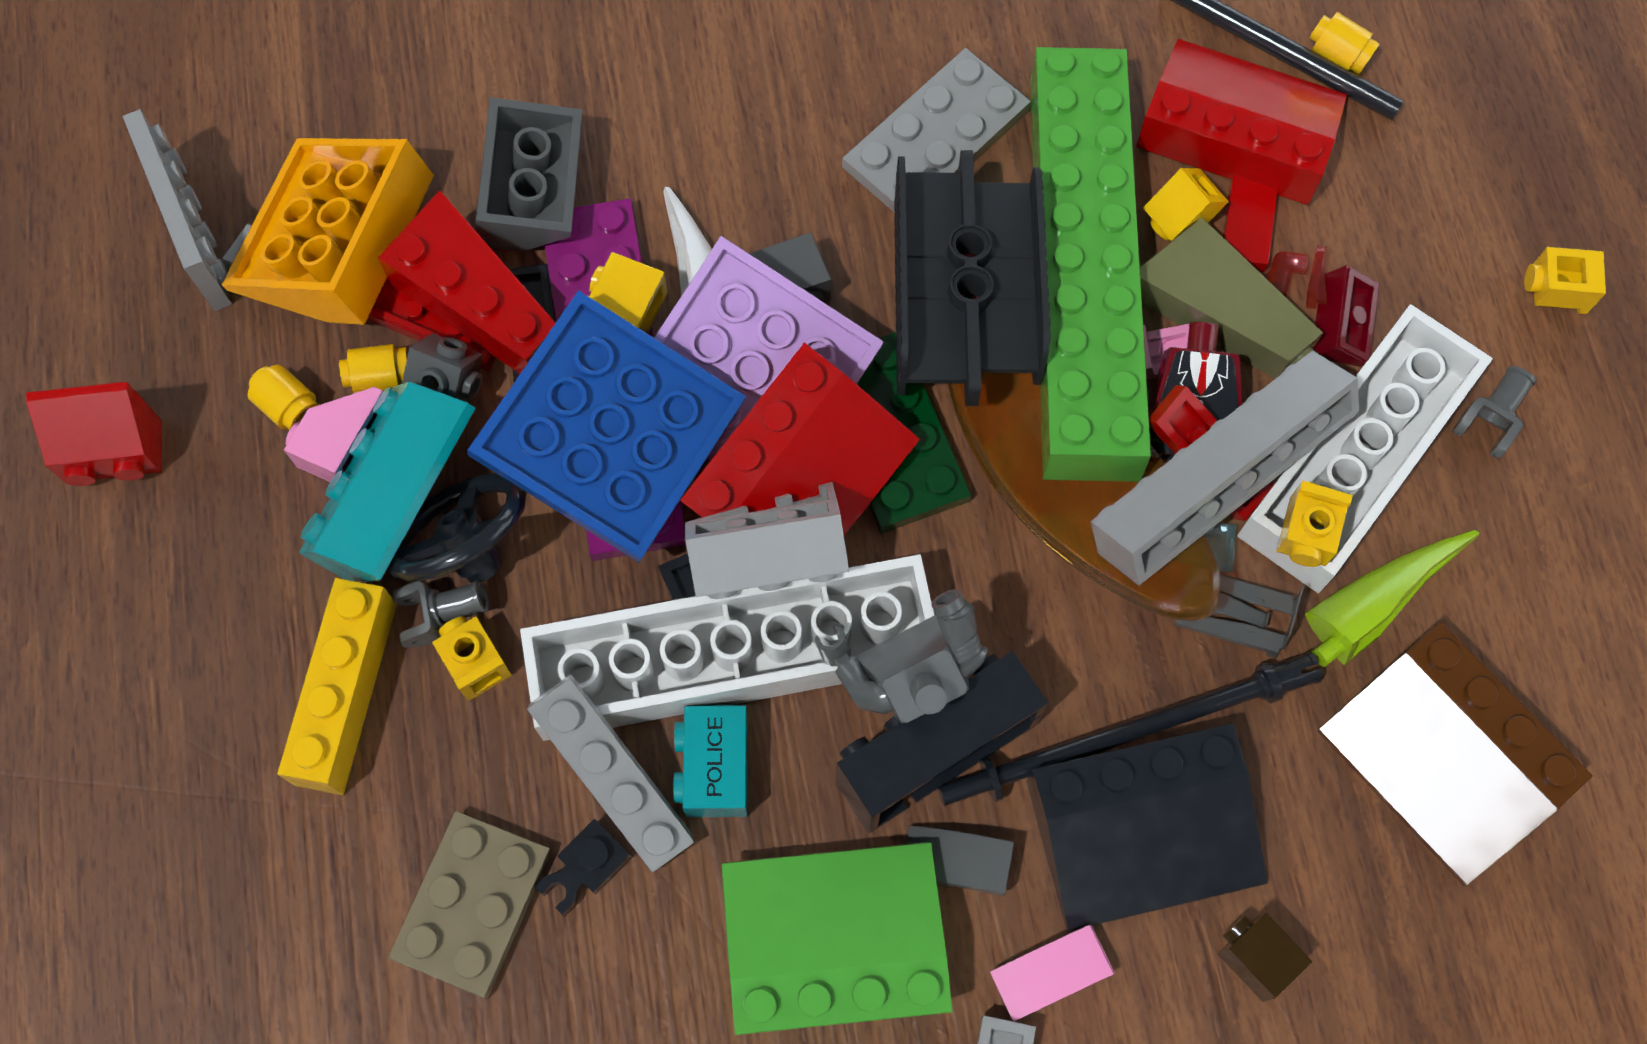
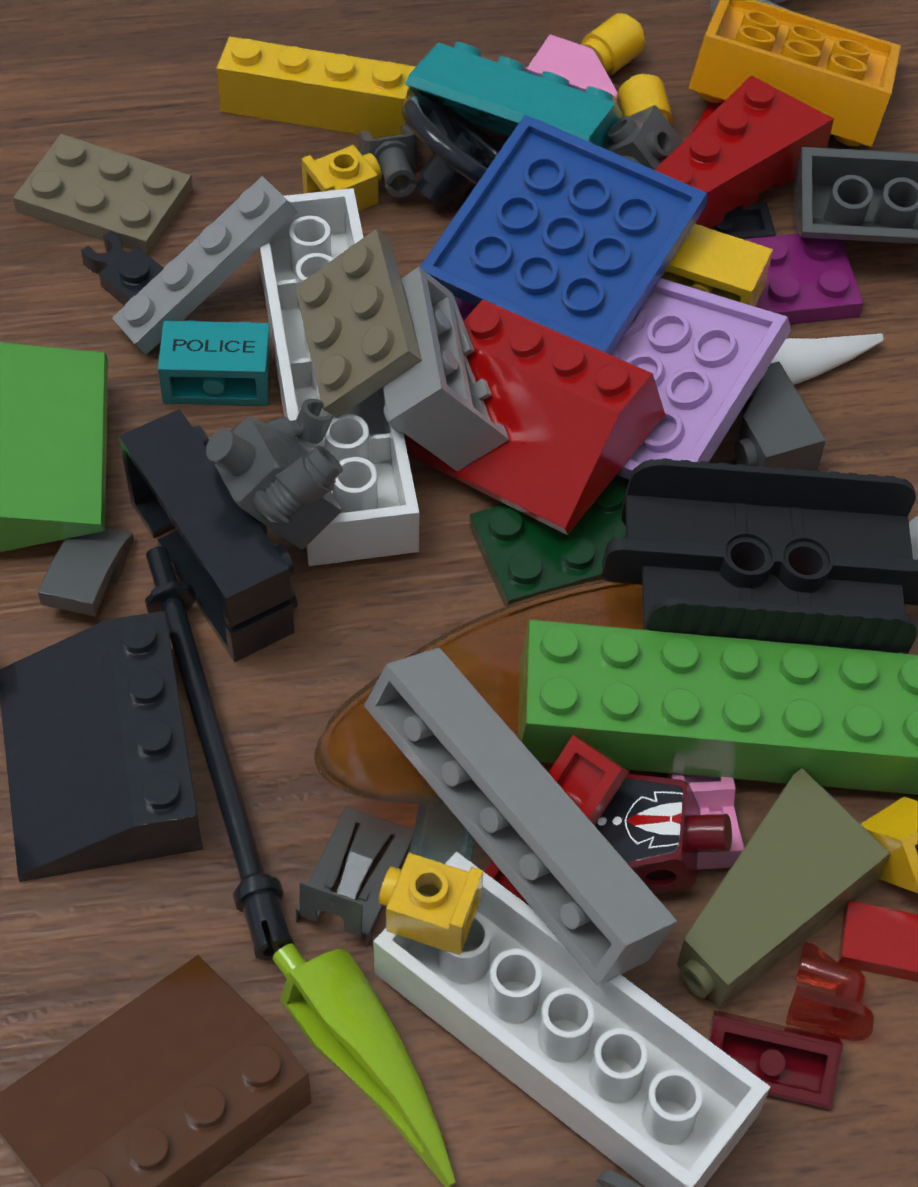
camera: 90 degrees right, 15 degrees down
(732, 603) = (357, 323): none -> dark tan plate

